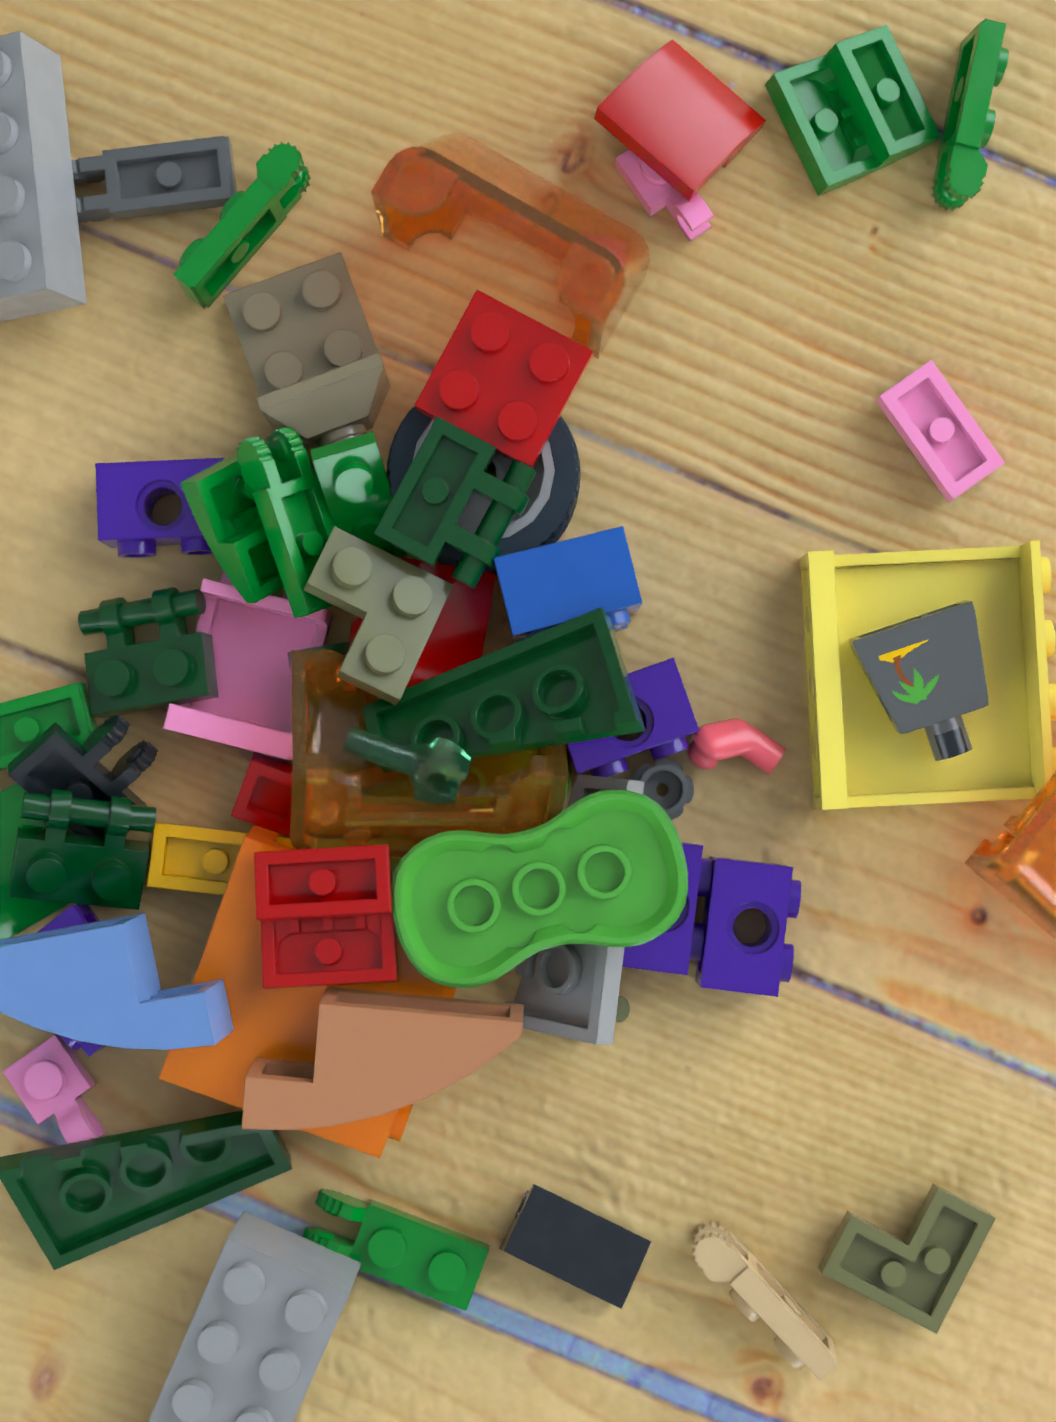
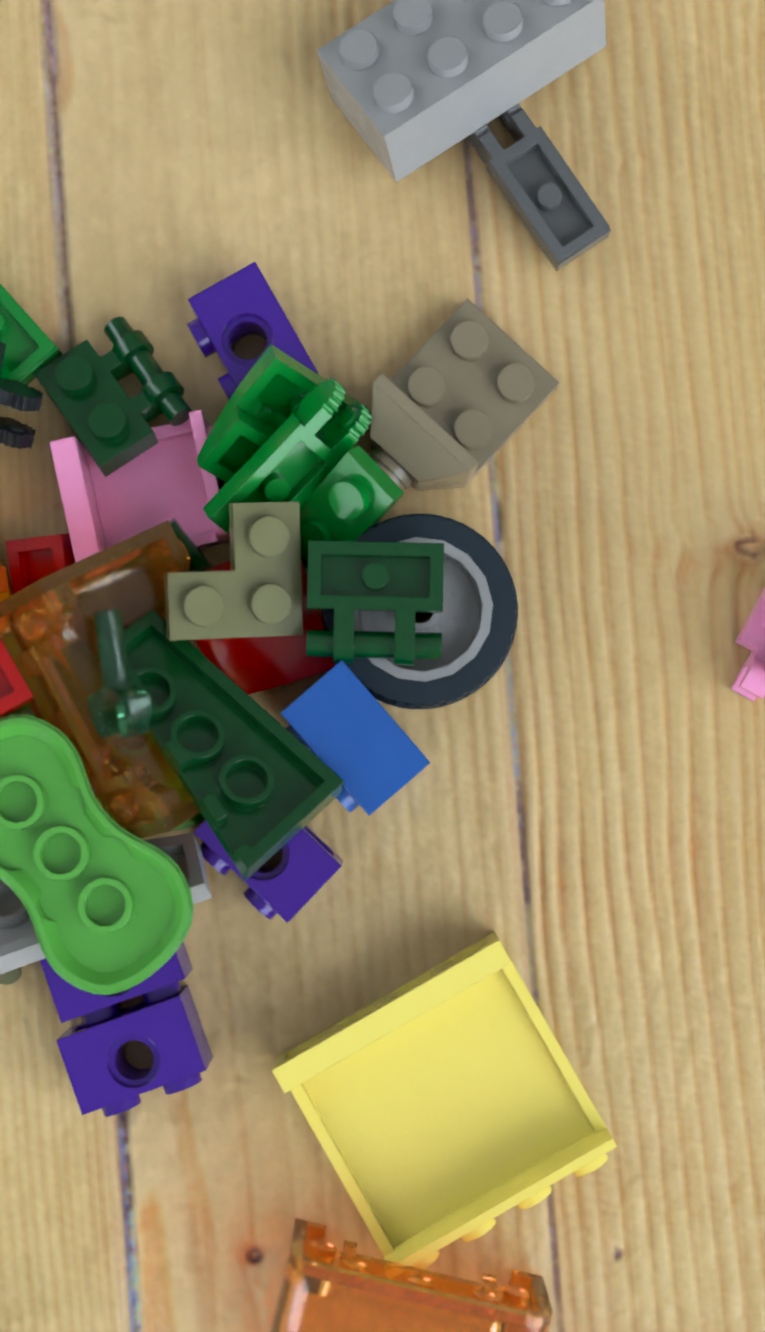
camera: 65 degrees right, 0 degrees up
(244, 225) = (539, 285): green hinge -> none
(454, 175) = (682, 450): clear orange windscreen -> none
(504, 378) = (510, 586): red plate -> none
(671, 774) = (226, 930): dark grey plate -> none
(731, 739) = (300, 953): coral arm -> none
(928, 674) = (445, 1104): dark grey torso -> none
(939, 431) = (672, 1003): bright pink plate -> none

